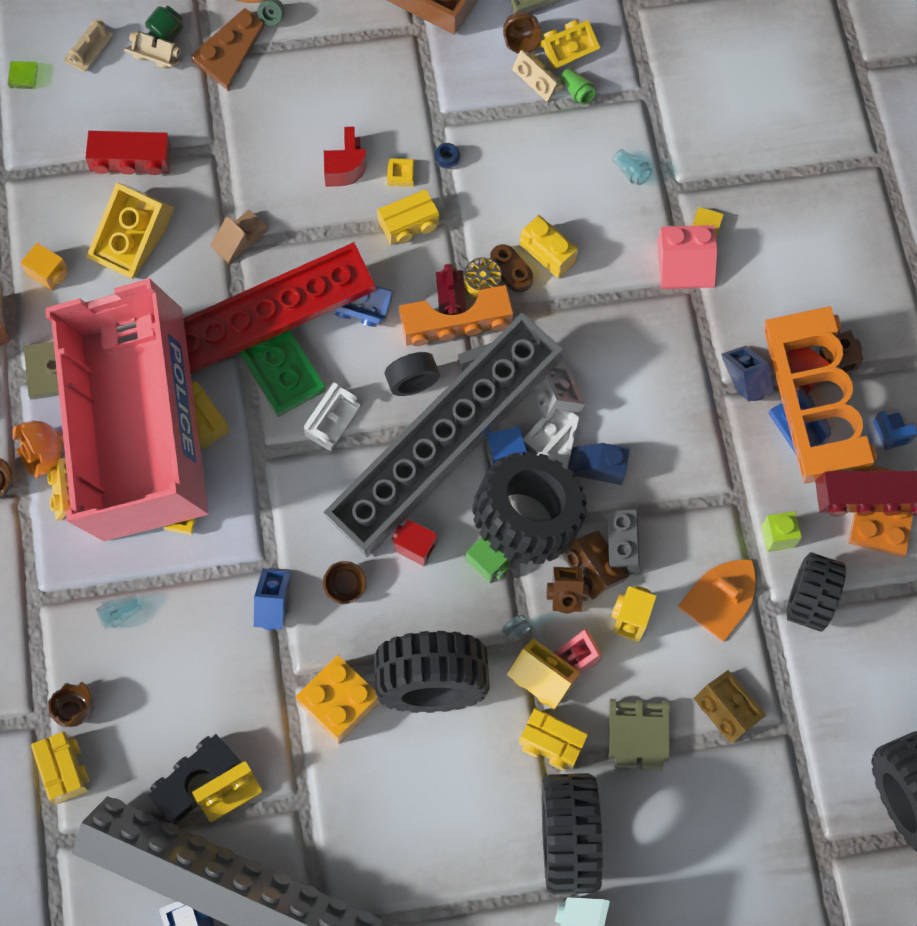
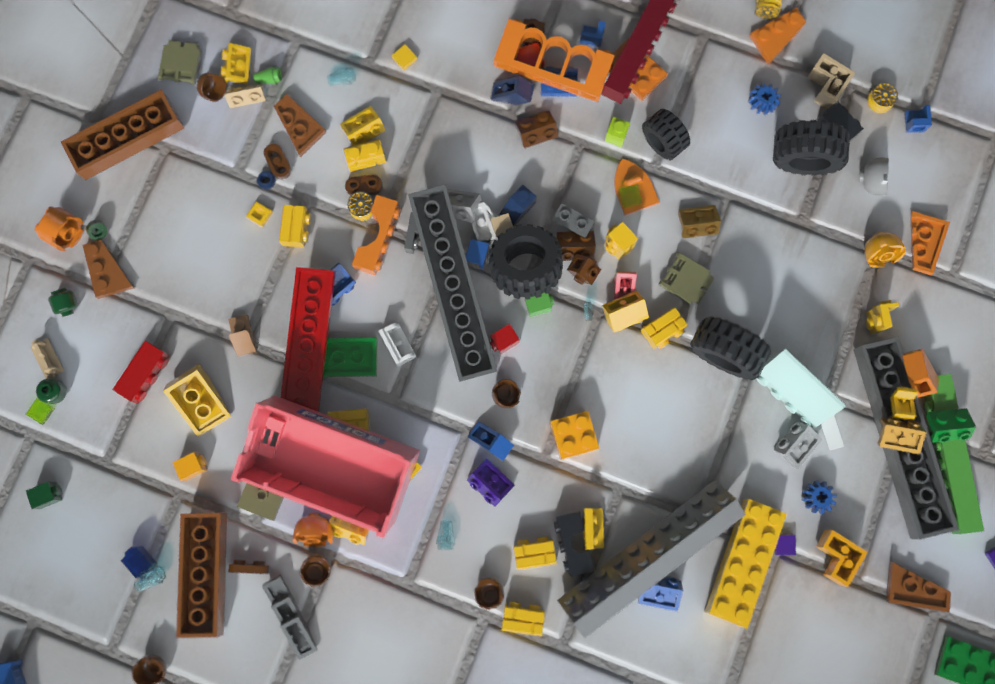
camera: 55 degrees left, 10 degrees up
(51, 71) = (51, 391): none -> dark green head
(154, 735) = (534, 553): none -> yellow brick
(162, 54) = (84, 313): tan hinge -> none
(217, 628) = (490, 483): none -> dark purple bracket
(346, 165) = (235, 242): red brick -> none
(412, 373) = (400, 281): black tyre -> none
(431, 672) = (595, 373): black tyre -> none
(450, 290) = (358, 230): dark red hinge -> none
(476, 156) = (278, 162): none -> reddish brown plate
(539, 154) = (299, 124): none -> dark orange wing
(563, 452) = (501, 223): none -> tan tile
(584, 224) = (362, 126): none -> yellow bracket
(687, 256) = (420, 81): coral slope -> none
(706, 597) = (630, 196): none -> clear neon green tile
(718, 430) = (537, 129): none -> reddish brown bracket

